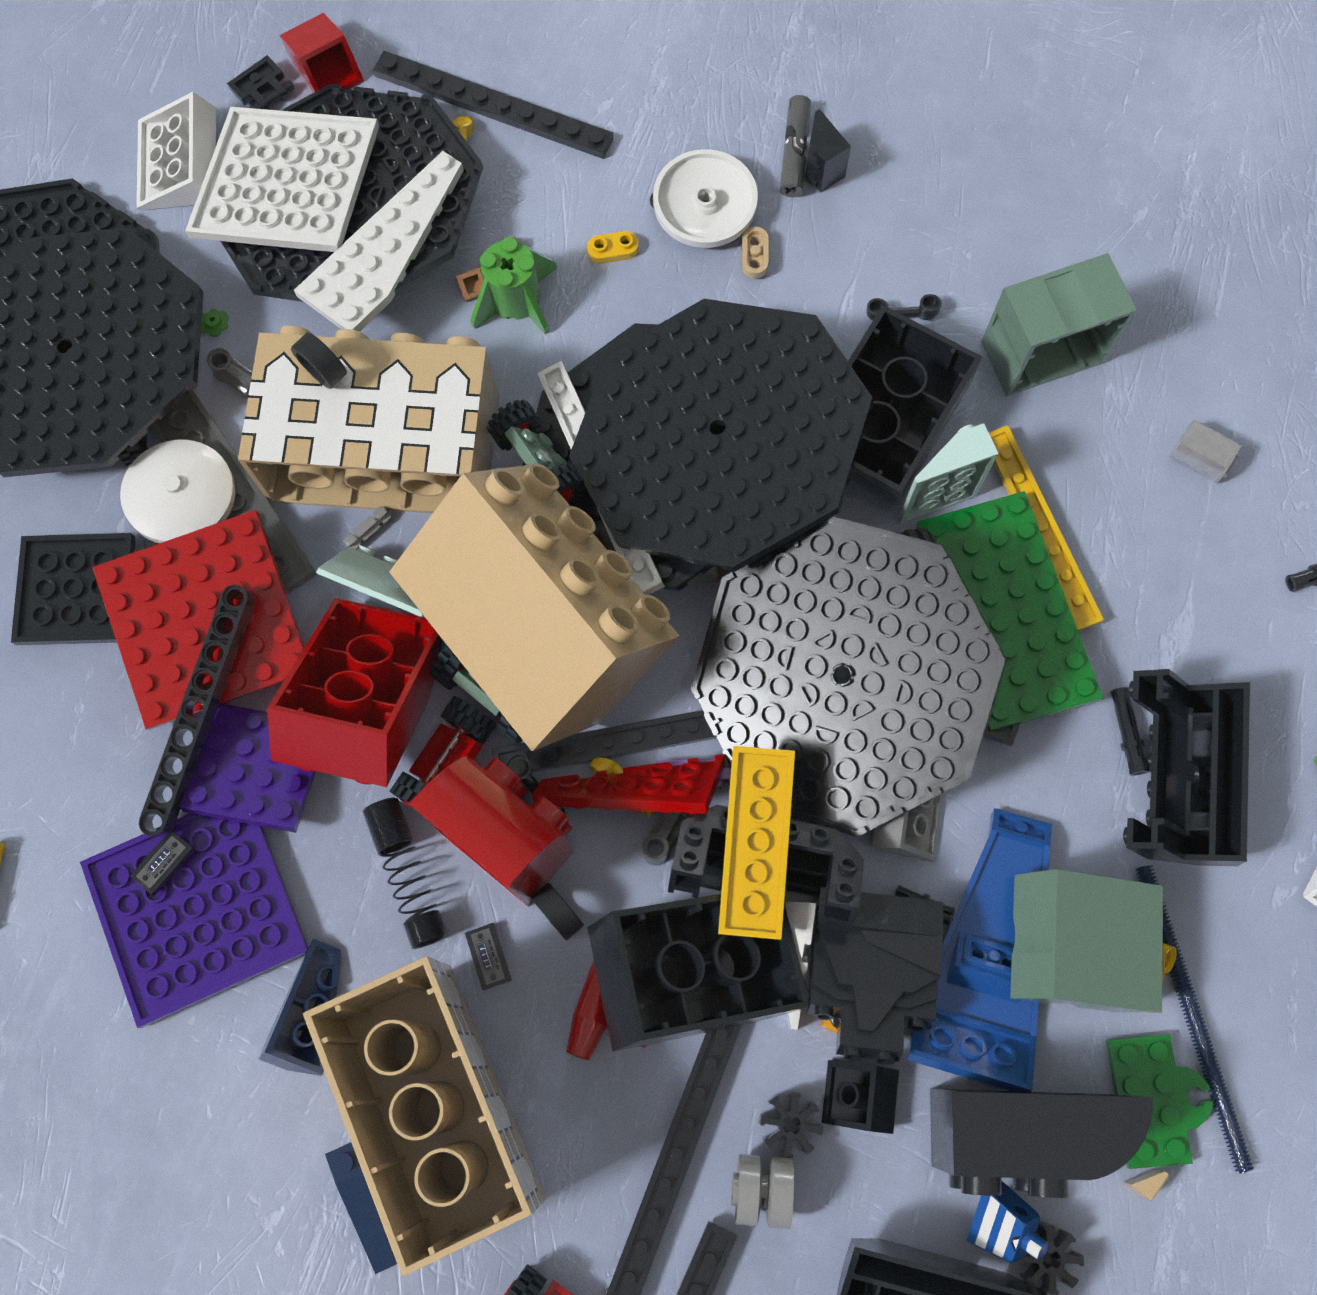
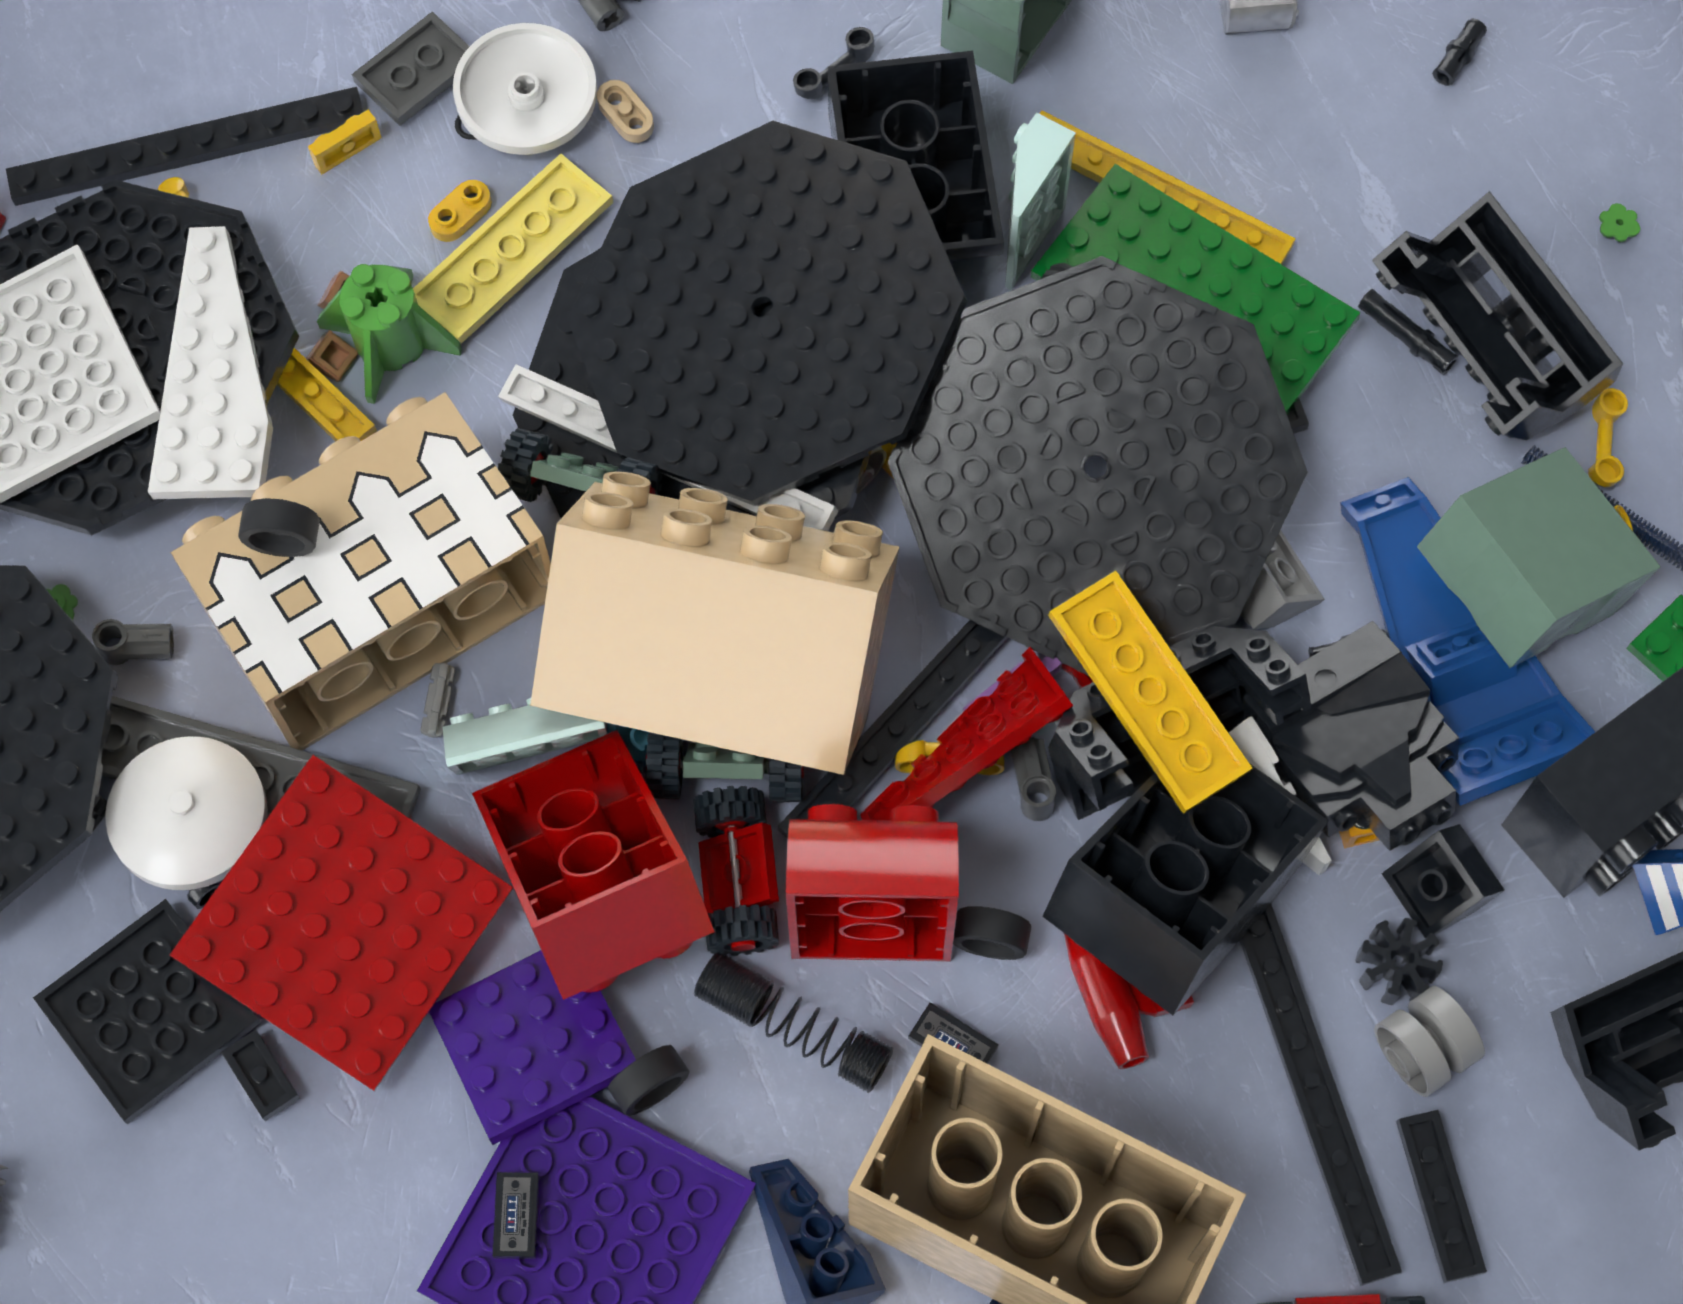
camera: 40 degrees left, 5 degrees down
(101, 672) = (260, 1075): none -> black plate
(185, 718) = (425, 995): black beam -> none
(295, 842) = (648, 1080): none -> black tyre
(444, 302) = (323, 400): none -> yellow plate
(578, 160) = (345, 141): none -> yellow plate
(621, 289) = (511, 247): none -> light yellow plate
(652, 142) = (412, 68): none -> dark grey plate
(1220, 877) = (1605, 411): none -> yellow bar

